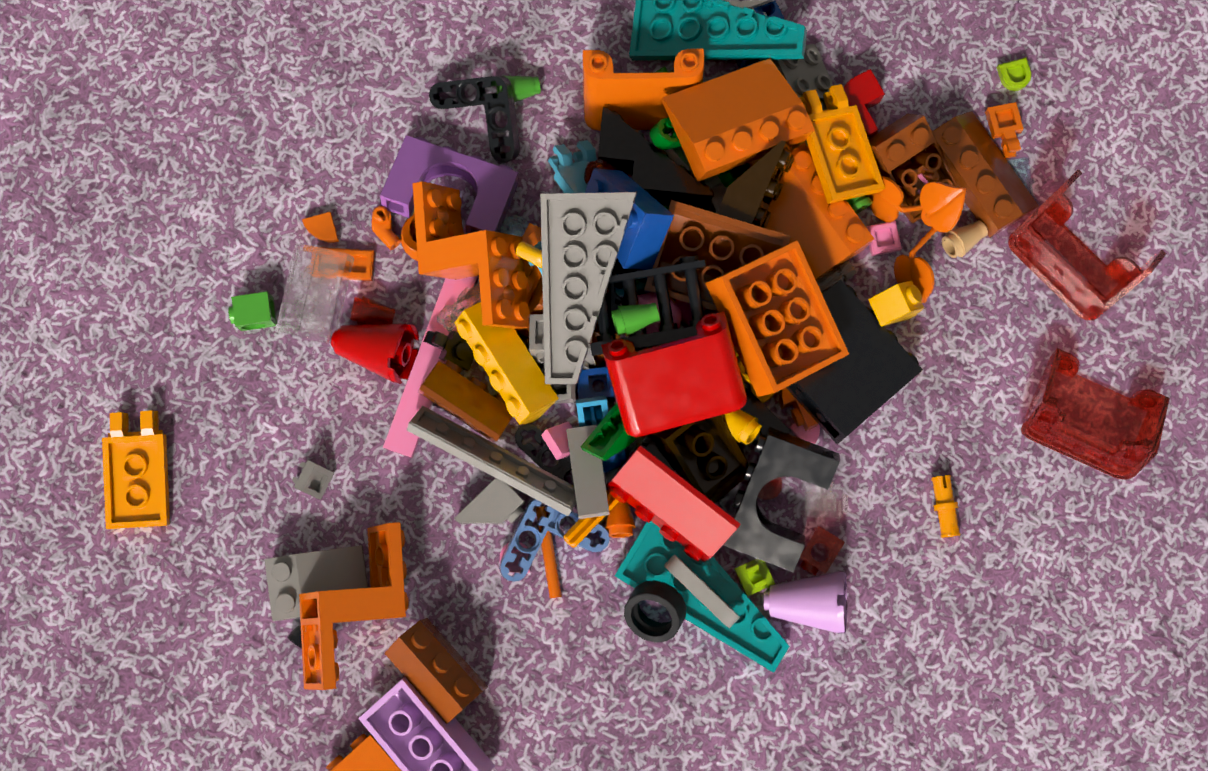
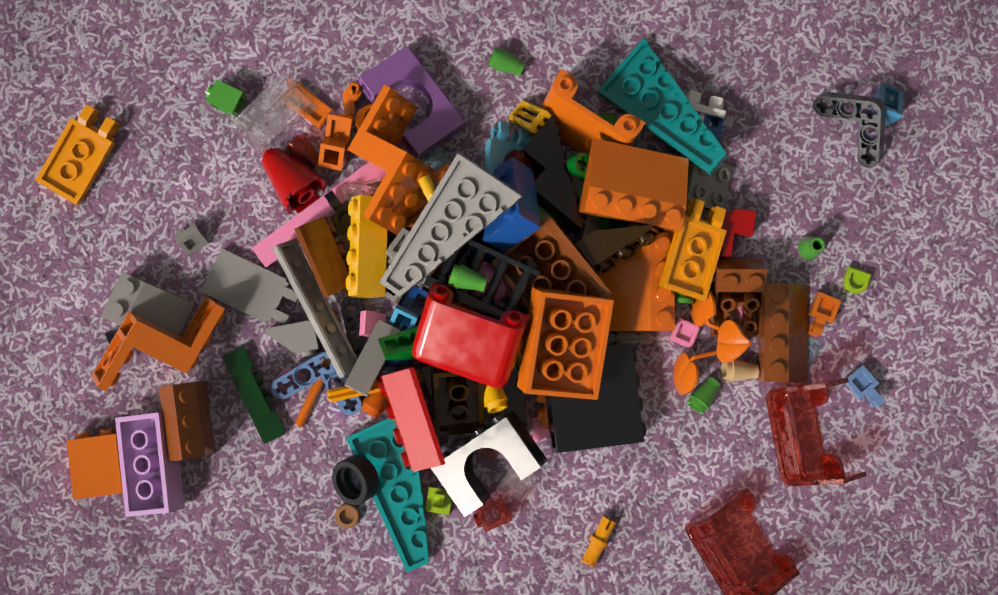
camera: 30 degrees right, 5 degrees up
(322, 227) = (310, 70): orange tile -> none
(398, 278) = (337, 140): none -> orange brick
(408, 490) = (248, 288): none -> light grey tile
(492, 103) = (480, 62): black beam -> none
(493, 600) = (254, 395): none -> dark green bracket
(579, 130) = (535, 121): none -> yellow tile
(670, 657) = (347, 516): none -> medium nougat tile
(702, 591) = (394, 488): light grey beam -> none
(811, 601) = (463, 544): lavender cone -> none
(897, 303) = (657, 385): yellow slope -> none
(947, 288) = (703, 396): none -> bright green cone
(949, 69) = (806, 247): none -> bright green cone
(1096, 171) = (862, 384): none -> medium blue plate

